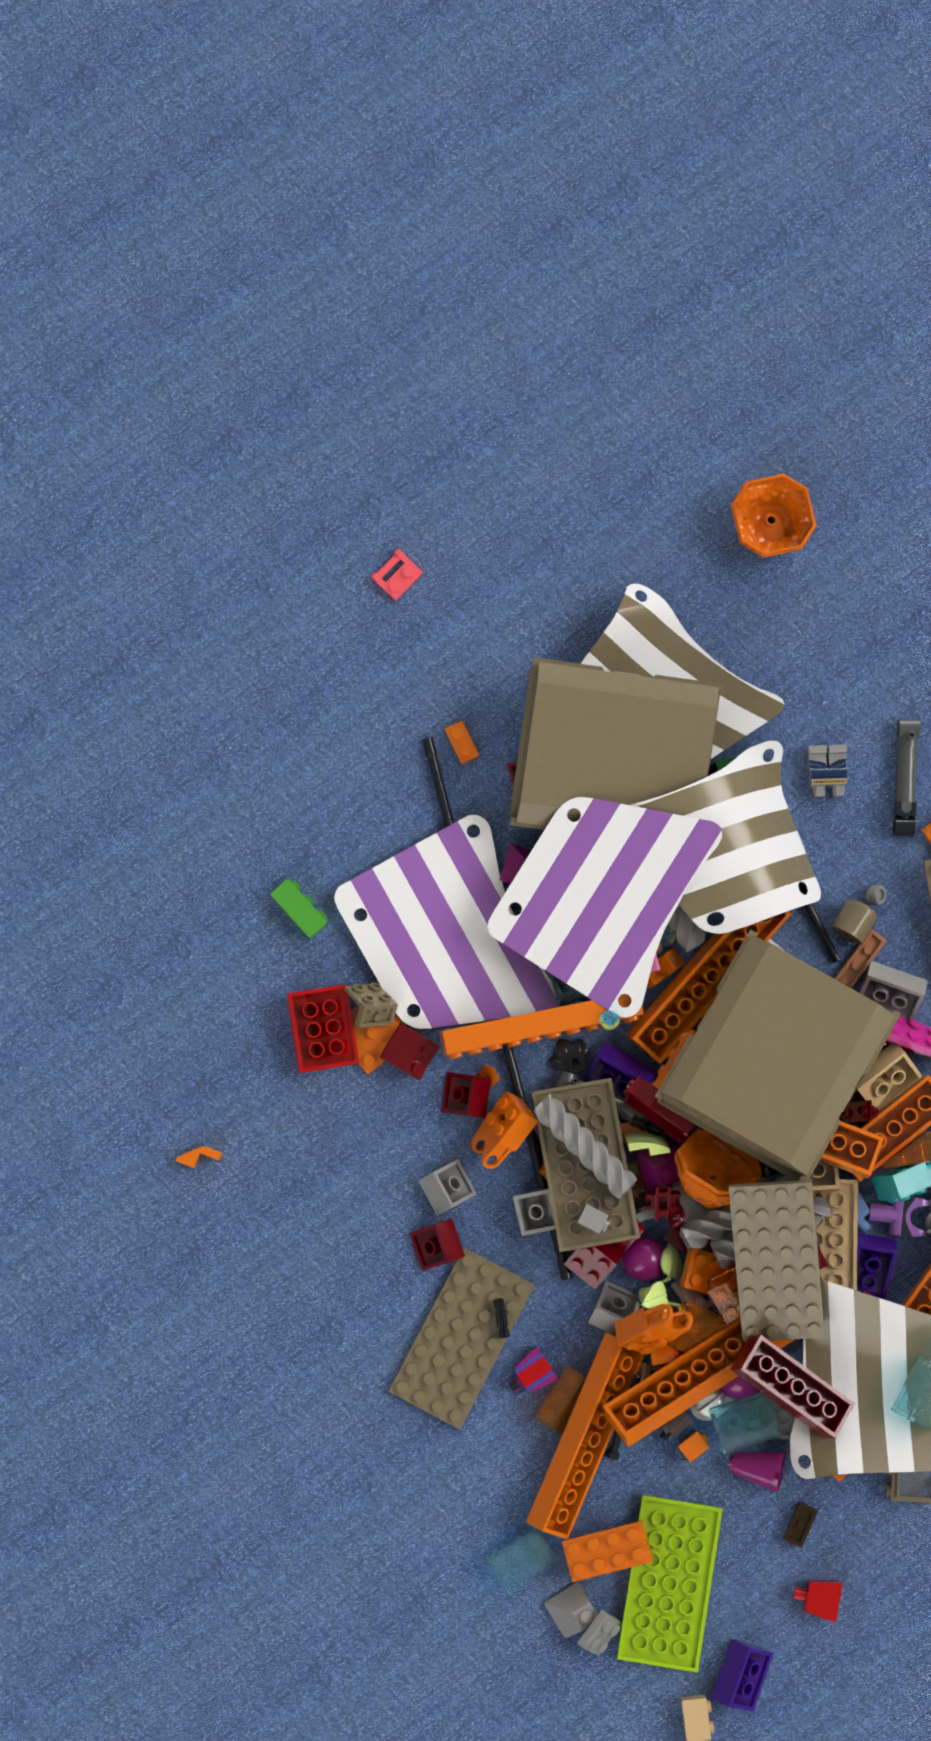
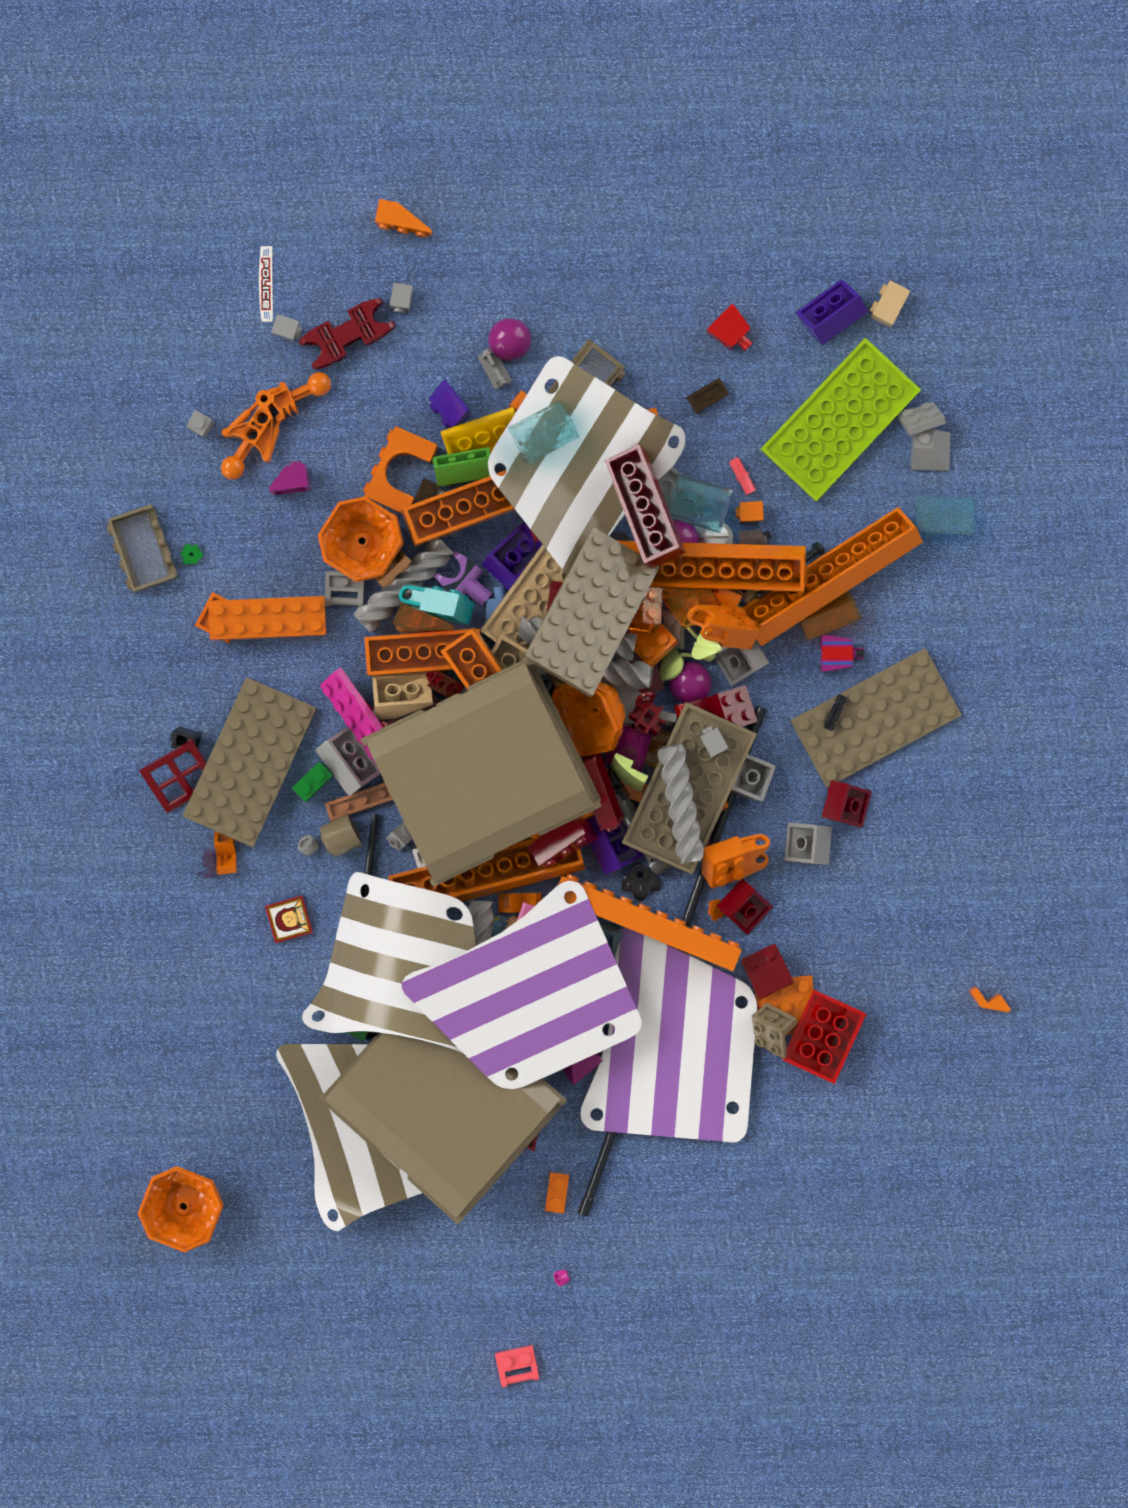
camera: 140 degrees left, 5 degrees up
(300, 908) = (777, 1145): bright green brick -> none
(409, 673) = (561, 1277): none -> dark pink hinge
(607, 1550) = (873, 477): orange brick -> none
(609, 1020) = (592, 890): clear light blue tile -> none
(663, 1044) = (562, 842): none -> dark red wedge
(721, 1473) = (742, 476): none -> coral axle
(759, 1467) = (710, 460): magenta cone -> none
(803, 952) = (399, 837): none -> light grey bracket
(827, 772) = (282, 967): light grey hips -> none
(848, 821) = (288, 919): none -> tile
(905, 805) = (219, 922): dark grey piece -> none
(910, 951) = (313, 781): none -> green brick

